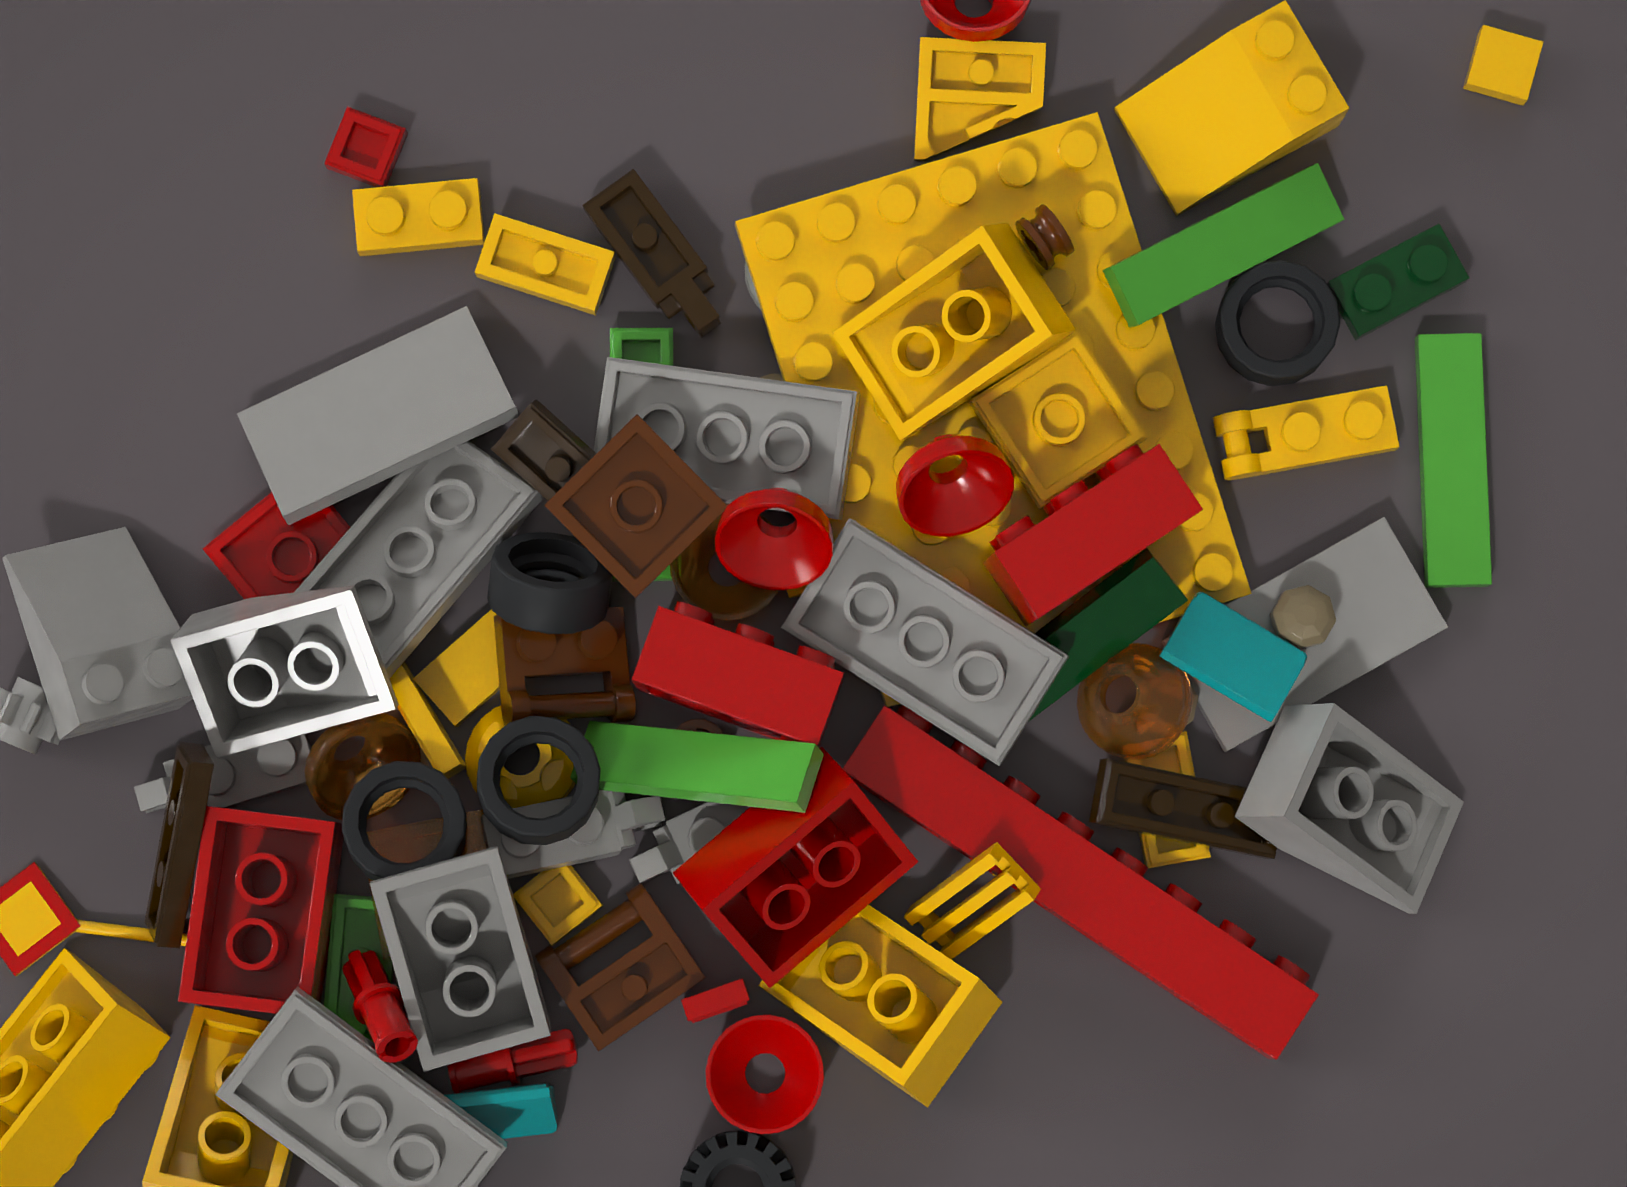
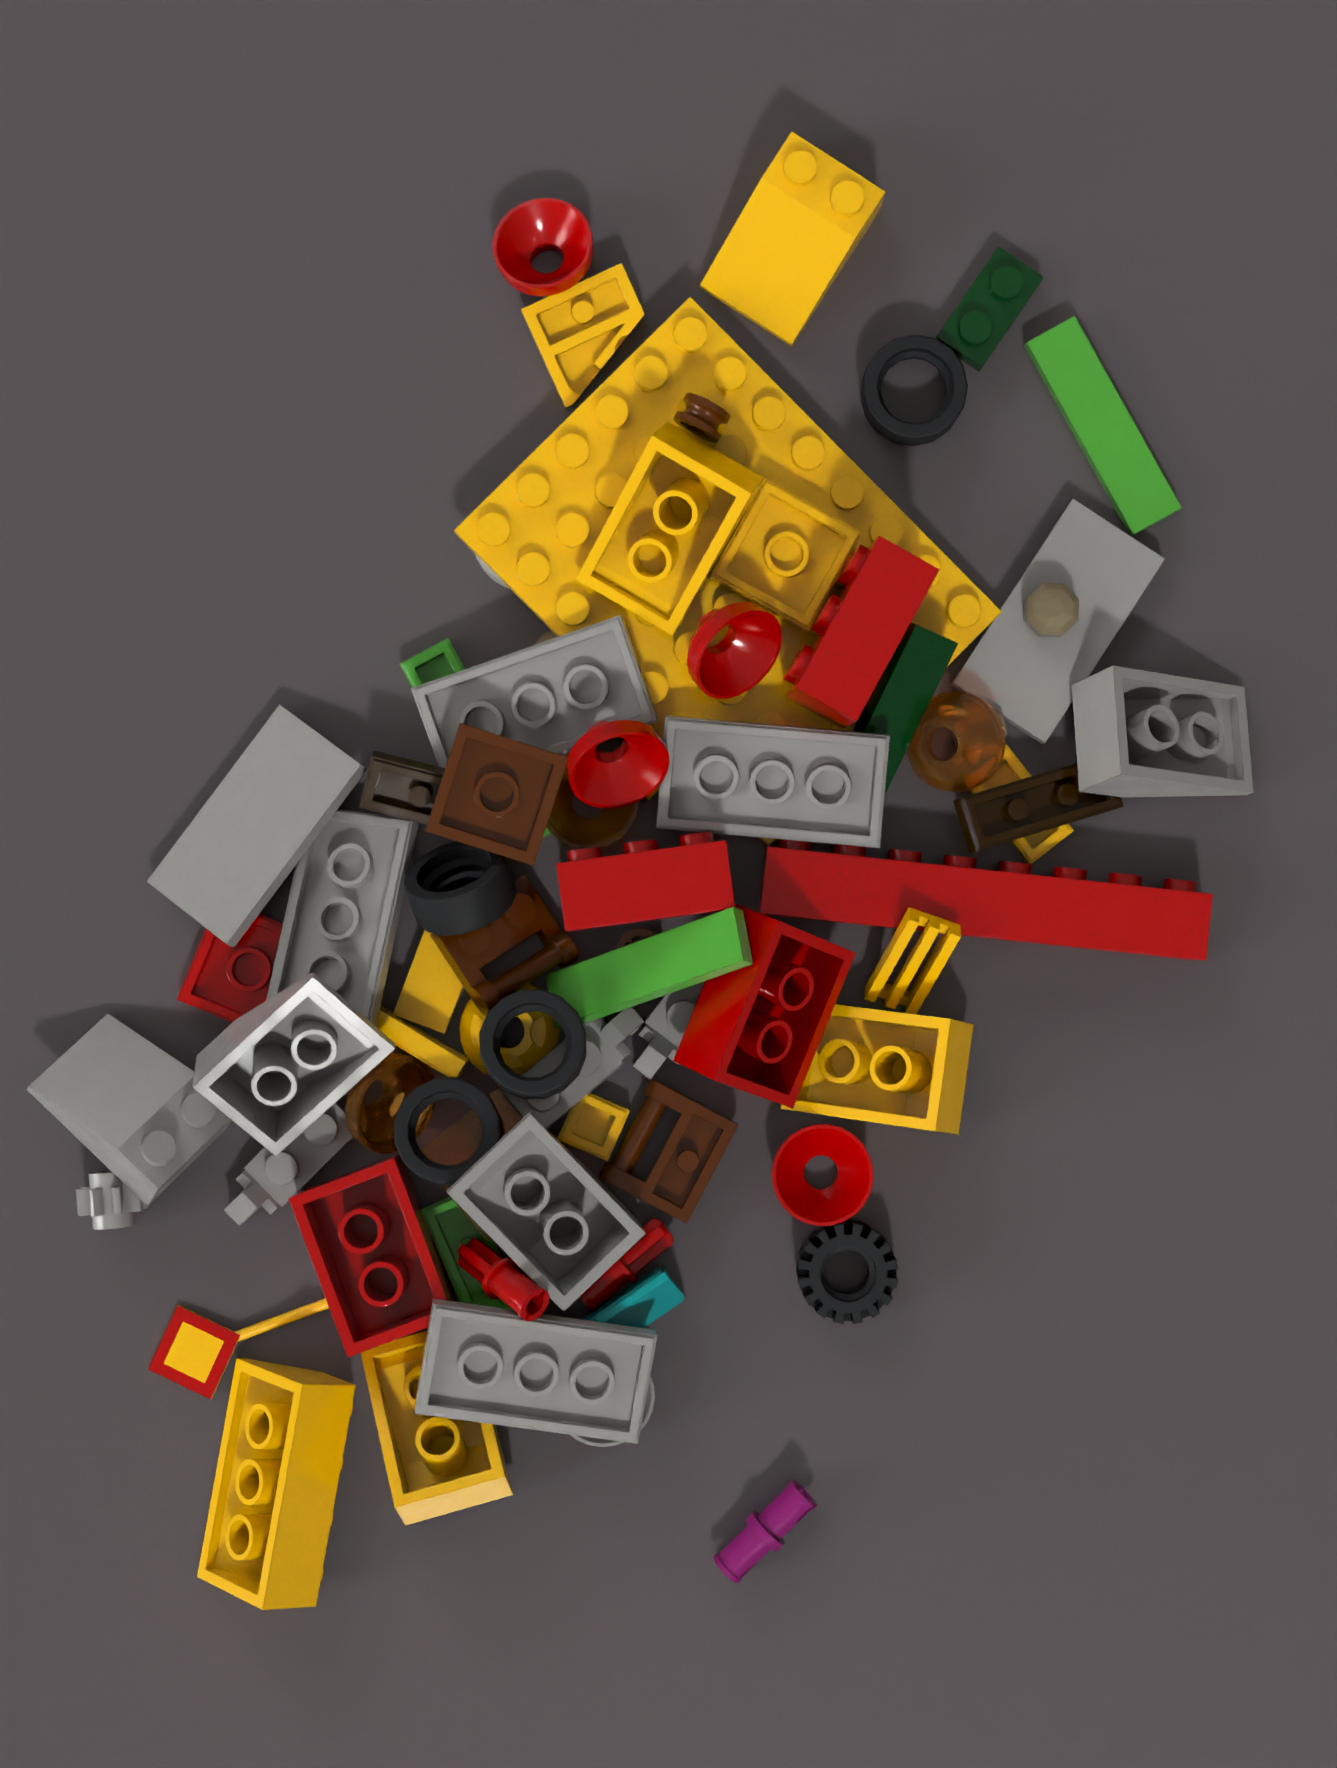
camera: 30 degrees left, 5 degrees up
(179, 844) = (282, 1236): dark brown tile -> none
(366, 148) = (134, 621): red tile -> none
(418, 217) = (204, 654): yellow plate -> none
(545, 264) = (323, 640): yellow plate -> none
(654, 251) = (402, 585): dark brown hinge -> none
(716, 1001) = (755, 1138): red tile -> none
(1223, 245) = (841, 351): bright green tile -> none
(1234, 655) = (1015, 667): teal slope -> none
(1308, 432) = (981, 463): yellow plate -> none
(1503, 65) = (983, 94): yellow tile -> none

